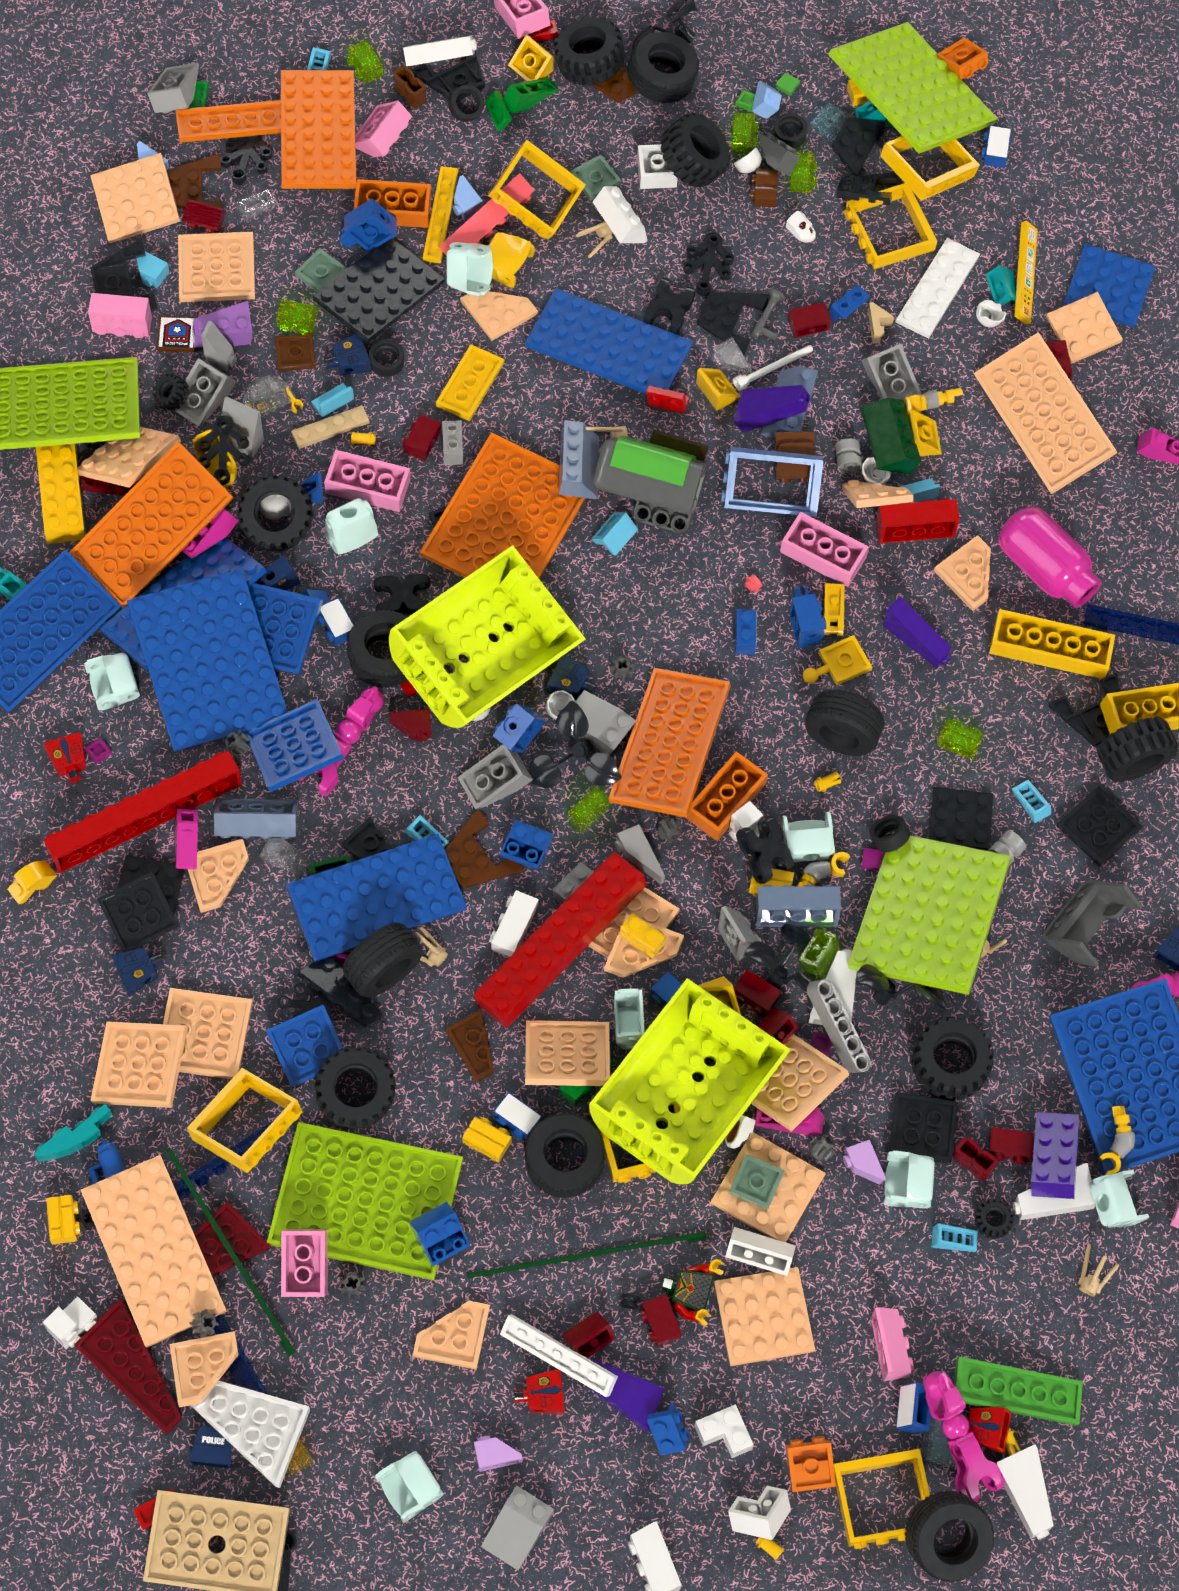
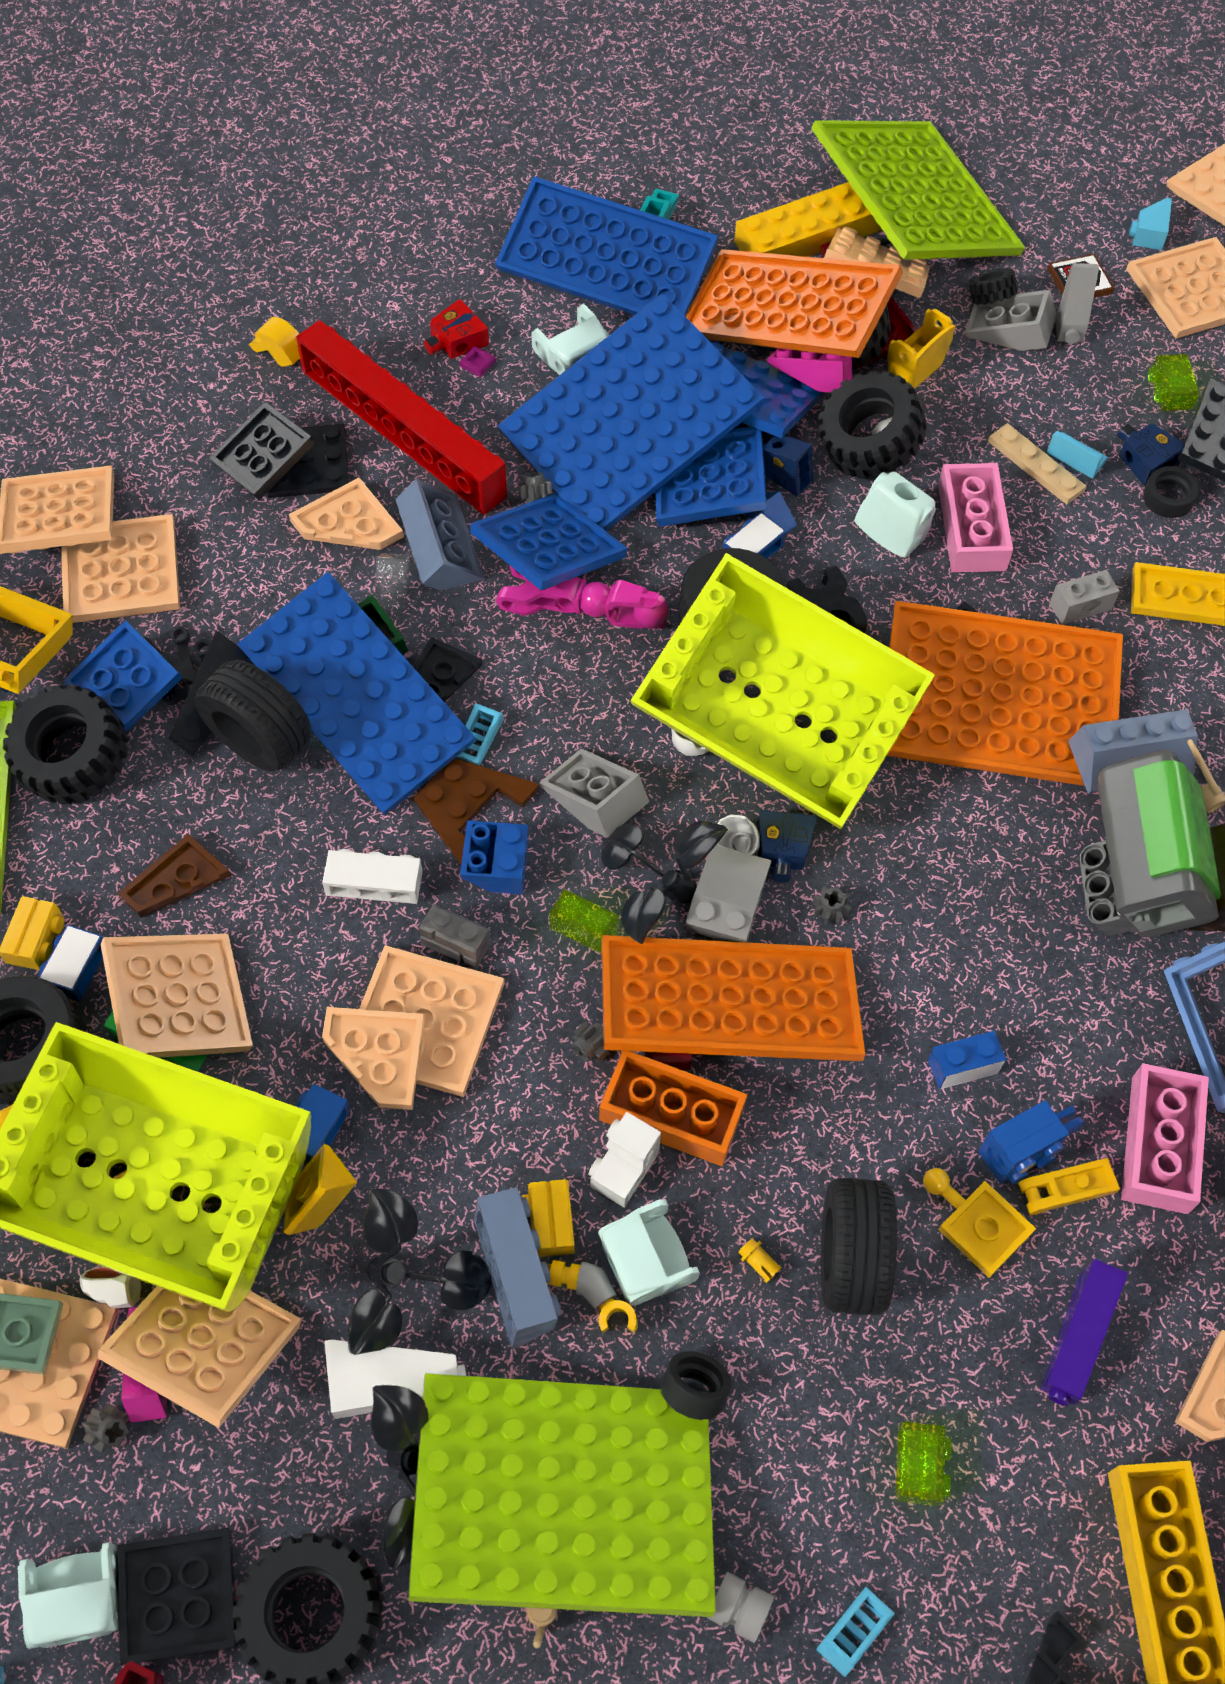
camera: 75 degrees right, 5 degrees down
(113, 275) = (1114, 195): black wing -> none
(120, 315) = (1069, 209): bright pink brick -> none
(137, 968) = (189, 474): dark blue torso -> none
(186, 838) = (376, 467): dark pink slope -> none
(223, 447) = (958, 330): black plant -> none
(232, 322) = (1119, 316): medium lavender wedge -> none
(246, 422) = (974, 361): light grey slope -> none
(269, 394) = (1040, 380): clear torso -> none
(295, 352) = (1123, 398): reddish brown tile -> none
(314, 487) = (929, 465): blue slope -> none
(363, 438) = (1039, 504): yellow pin -> none
(413, 723) = (634, 667): dark red slope -> none
(422, 437) = (1072, 560): dark red brick -> none
(436, 952) = (300, 792): tan plant -> none
(518, 728) = (666, 783): brick -> none
(560, 940) = (362, 939): red brick -> none
(615, 532) = (1049, 839): medium azure panel -> none
(628, 1017) = (255, 1066): light aqua piece -> none
(638, 851) = (544, 1005): light grey slope -> none
(642, 935) = (383, 1040): yellow brick -> none
(736, 932) = (439, 1184): light grey slope -> none
(753, 583) = (1057, 1050): coral plate -> none
(756, 993) = (348, 1253): dark red brick -> none
(764, 849) = (588, 1182): black piece -> none
(779, 1025) = (287, 1290): dark red brick -> none
(819, 953) = (442, 1326): clear neon green brick -> none
(821, 1043) = (293, 1378): magenta tile -> none
(830, 1021) = (301, 1403): light grey beam -> none
(864, 1162) = (91, 1508): lavender slope -> none
(872, 859) = (646, 1370): magenta tile -> none
(961, 817) = (775, 1508): black plate -> none

